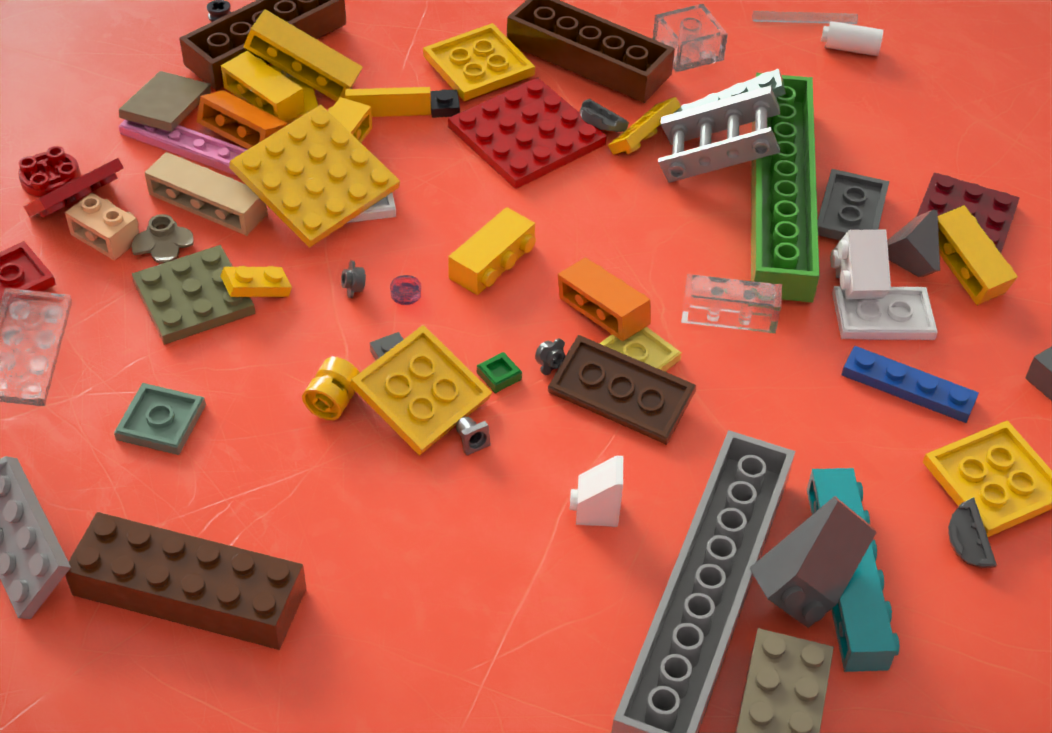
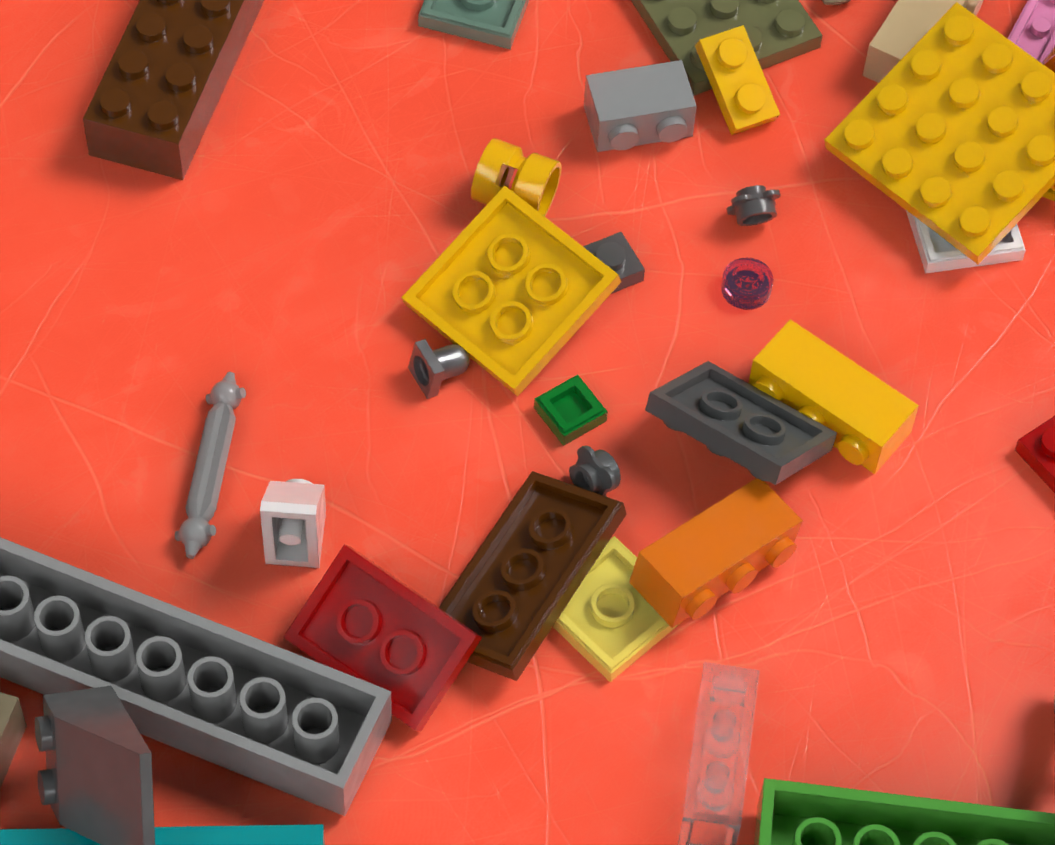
camera: 90 degrees right, 10 degrees up
(272, 329) = (639, 106): none -> light grey brick
(518, 282) = (741, 422): none -> dark grey plate
(551, 553) = (210, 465): none -> light grey wheel
(677, 451) = (384, 635): none -> red plate

